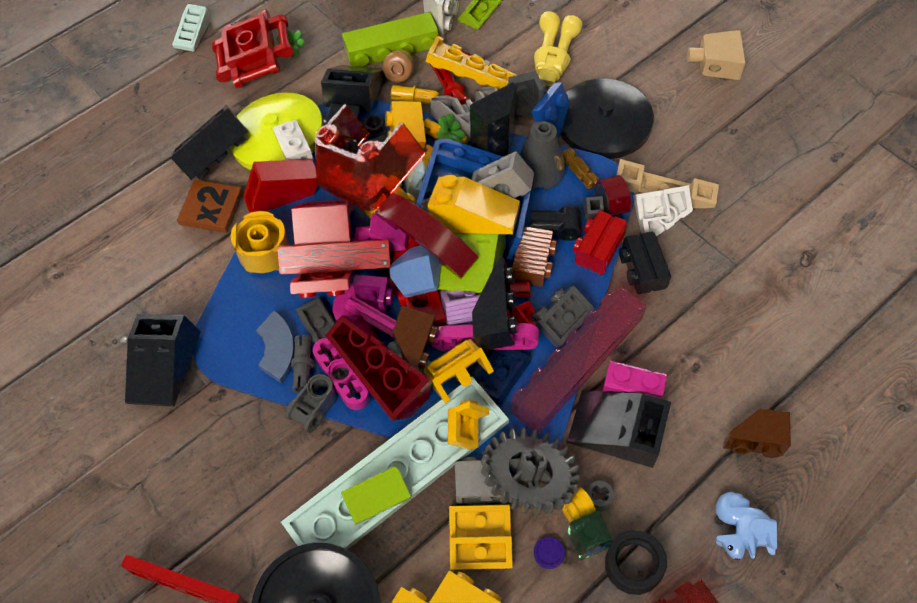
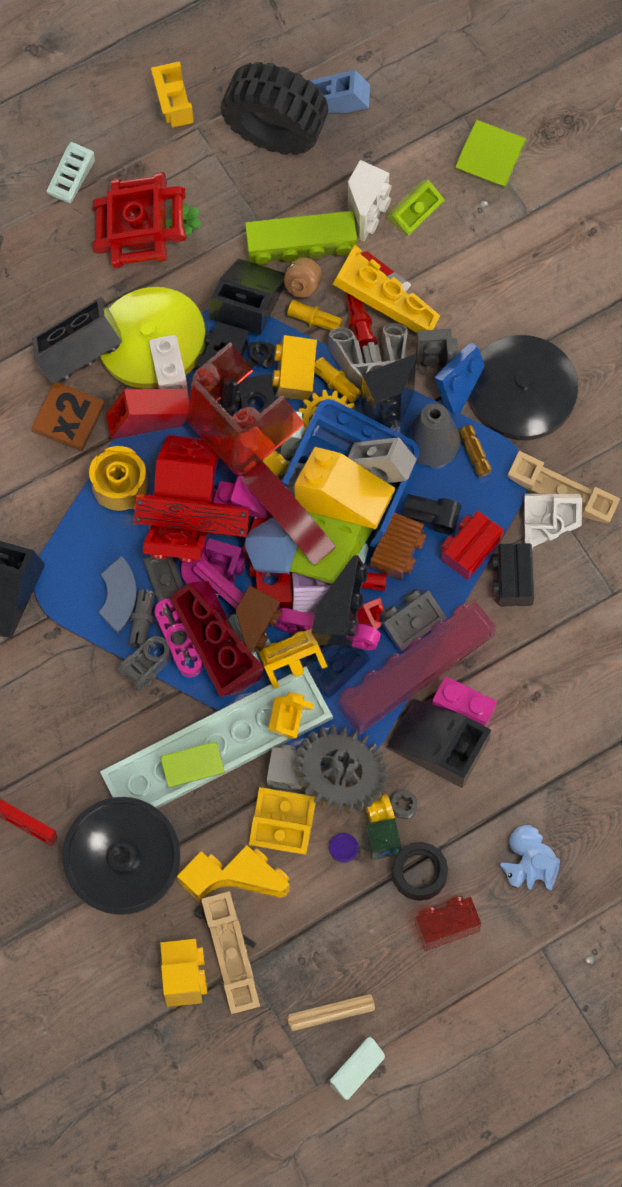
camera: 10 degrees right, 10 degrees up
(449, 129) = (341, 383): bright green plant -> none
(550, 60) = (481, 303): light yellow piece -> none
(592, 202) = (475, 495): dark grey piece -> none
(615, 195) = (498, 495): dark red piece -> none
(761, 433) = (574, 774): reddish brown slope -> none

